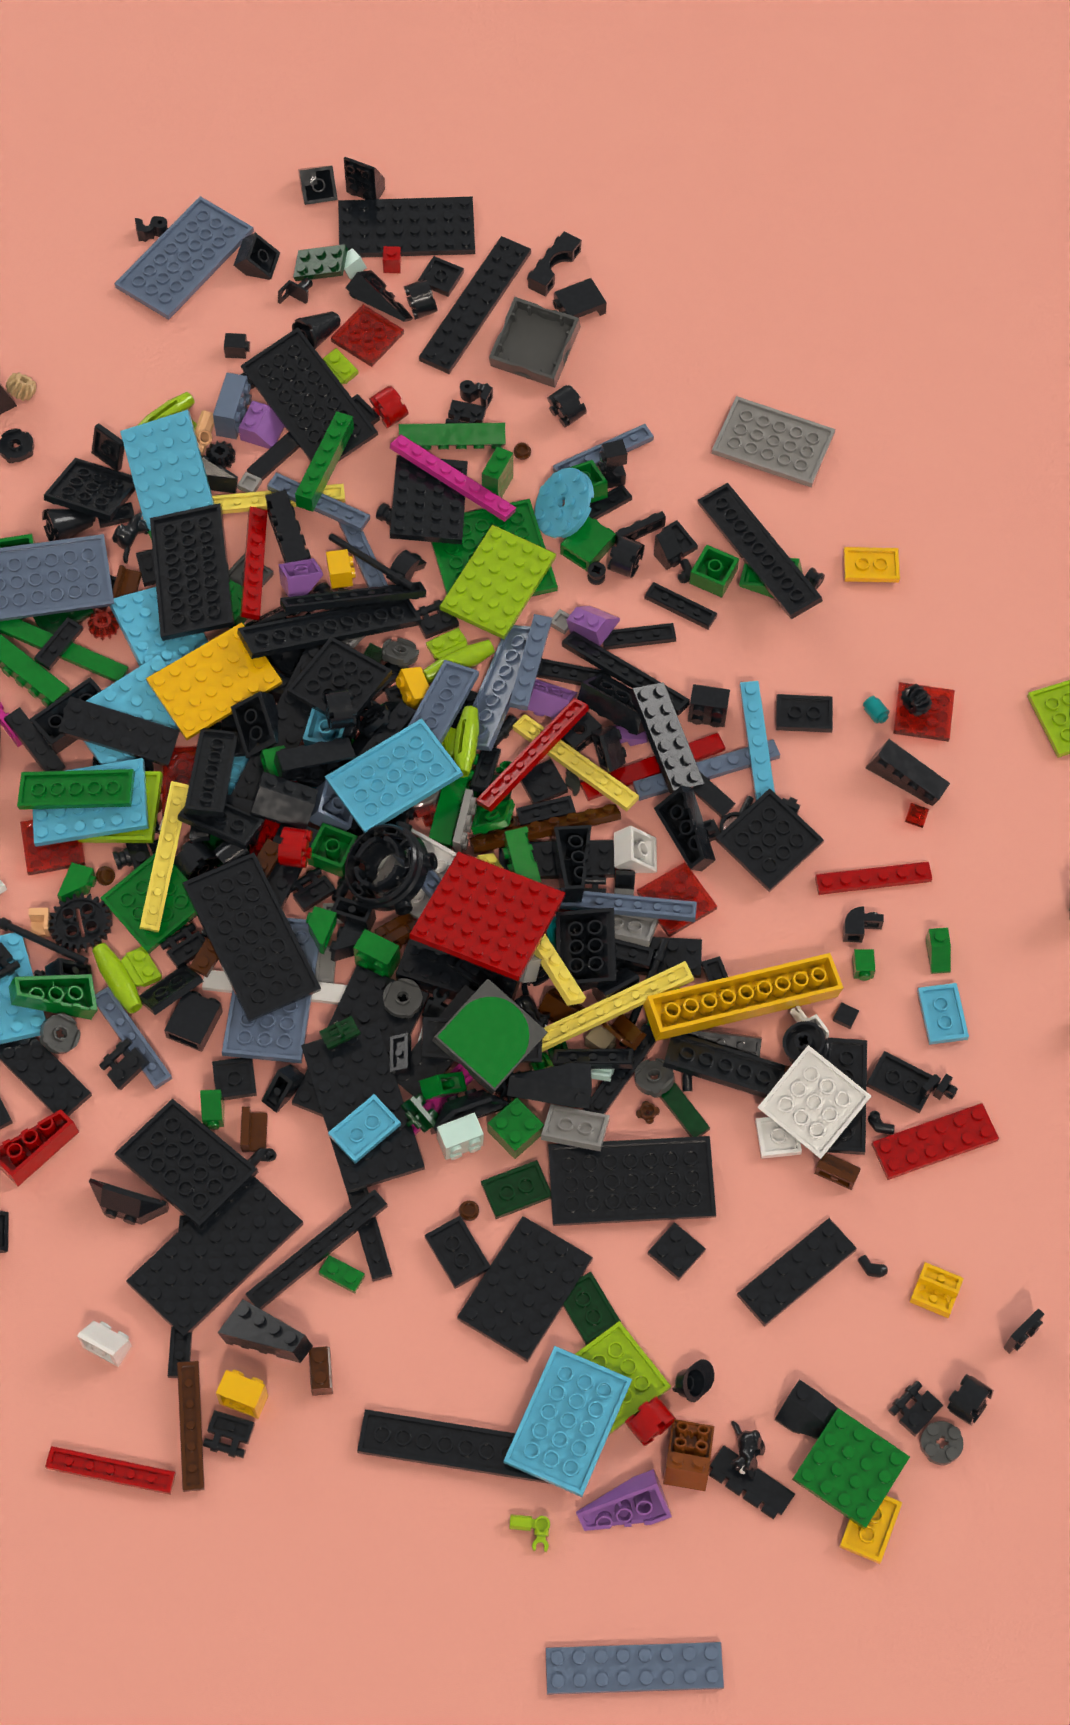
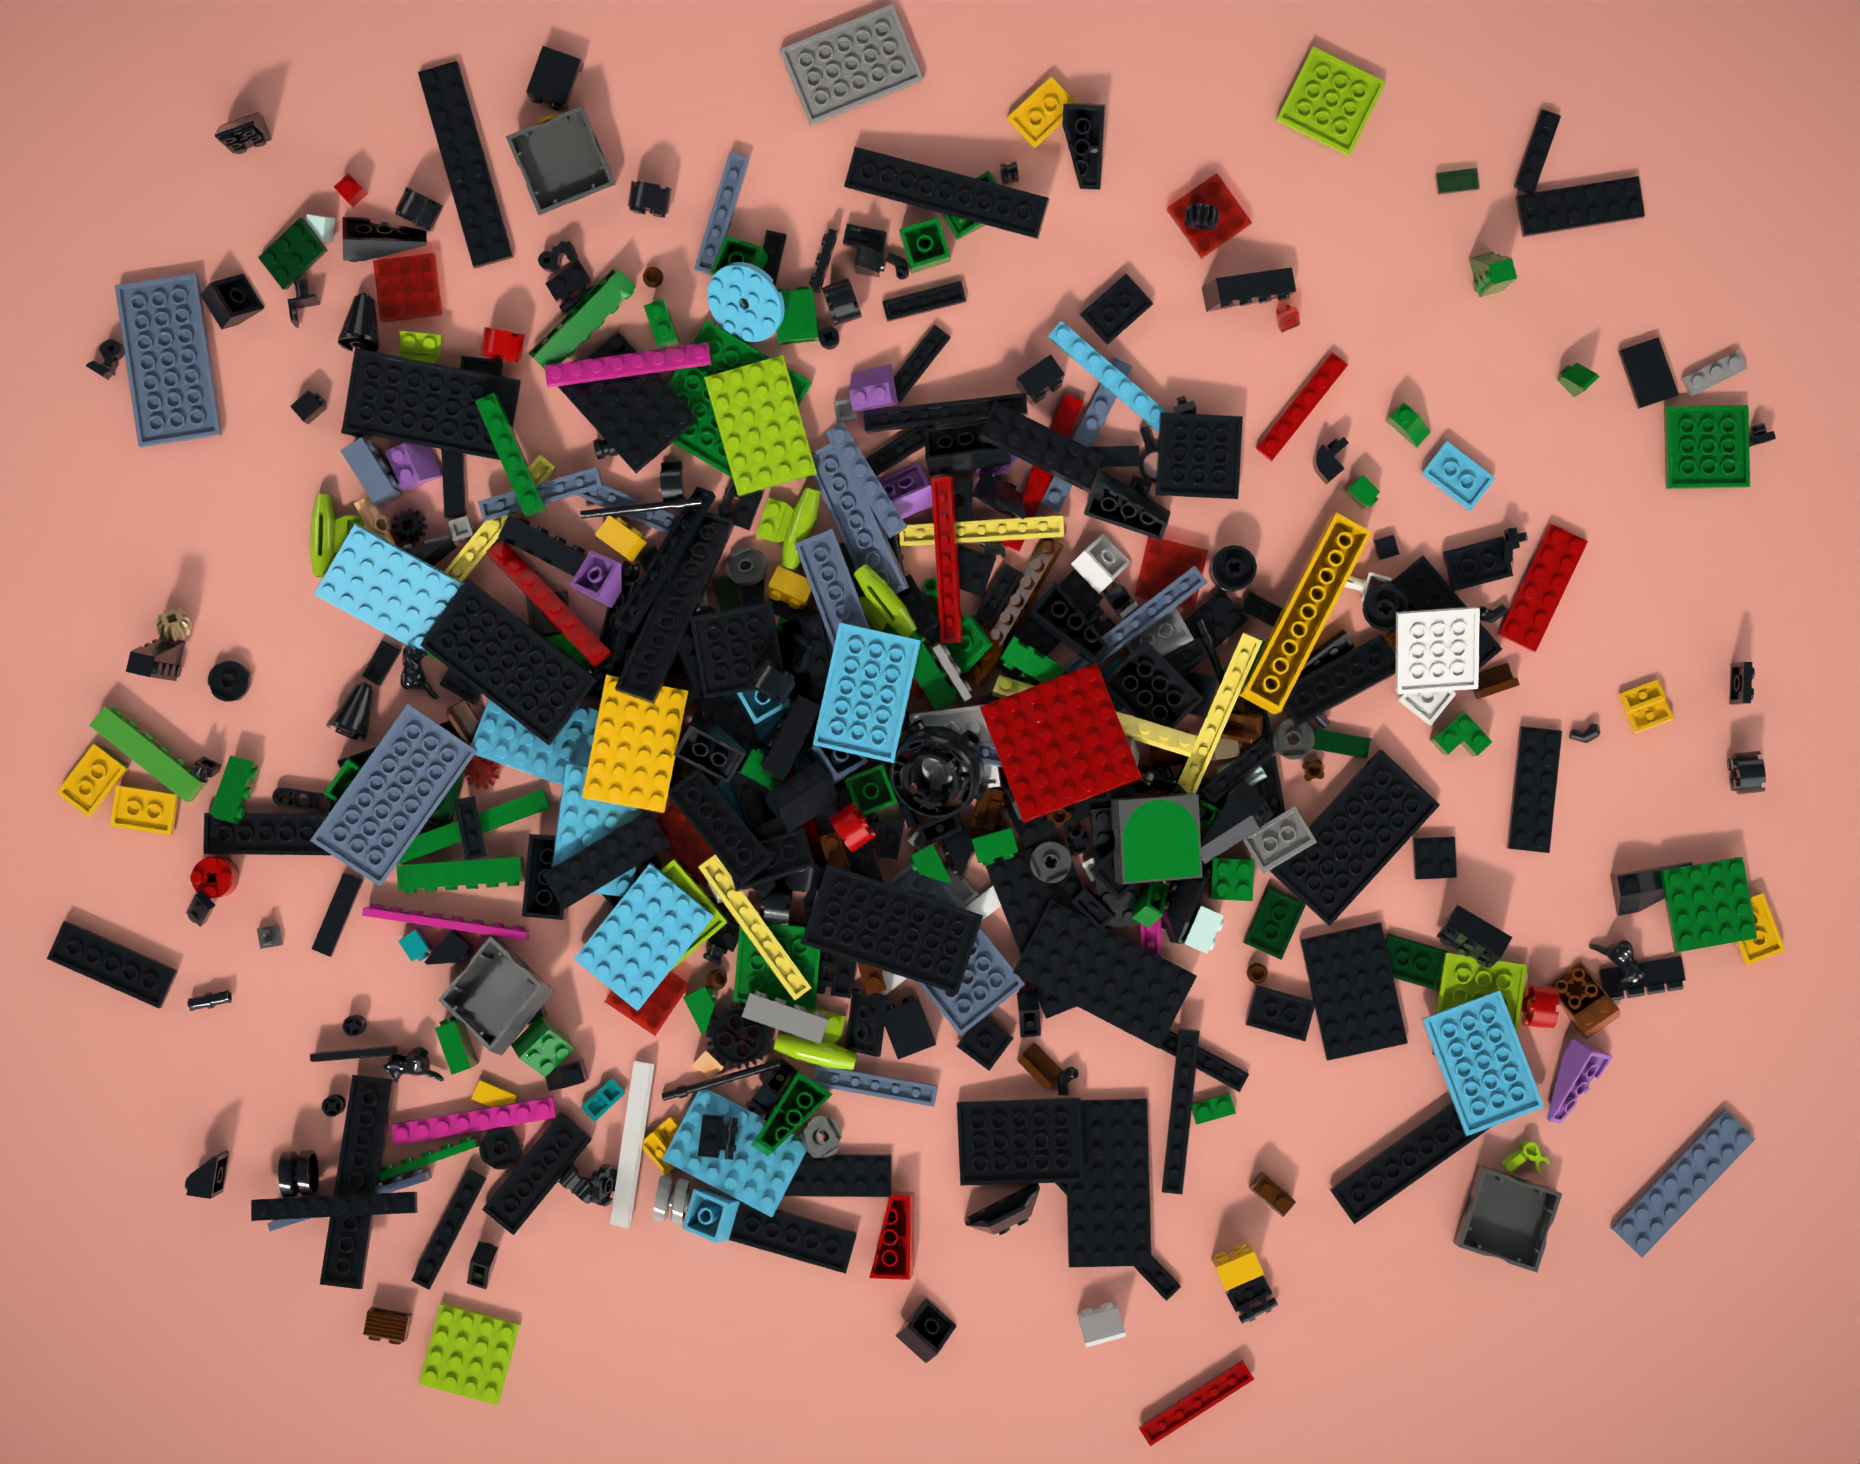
camera: 40 degrees left, 25 degrees up
(33, 741) = (544, 928): black plate -> none
(76, 789) = (627, 941): green plate -> none
(91, 489) = (342, 664): black plate -> none
(108, 447) = (312, 612): black tile -> none
(121, 933) = (785, 1018): none -> light grey brick
(128, 1067) = (899, 1112): black plate -> none
(190, 1426) = (1221, 1320): reddish brown plate -> none
(212, 1108) = (997, 1083): green slope -> none
(262, 1332) = (1207, 1210): black wedge -> none
(317, 184) = (203, 173): black slope -> none
(339, 1032) = (1038, 941): dark green hips -> none
(364, 1128) = (1129, 994): medium azure plate -> none
(413, 224) = (325, 140): black plate -> none
(418, 1115) = (1155, 945): dark green hips -> none
(435, 965) = (1059, 821): none -> reddish brown plate
(442, 275) = (408, 165): black plate -> none
(474, 1558) = (1507, 1218): none -> dark grey tile
(564, 250) = (488, 33): black arch -> none
(612, 459) = (749, 223): black arch -> none
(649, 1321) = (1473, 937): none -> black brick
(695, 1380) = (1540, 947): black piece -> none
(722, 931) = (1244, 566): none -> black wheel
(780, 1179) = (1461, 731): none -> green brick
(876, 709) = (1171, 251): teal brick -> none
(887, 598) = (1085, 137): none -> black wedge
(920, 1413) = (1715, 812): black plate -> none
(932, 1450) = (1761, 822): dark grey plate -> none

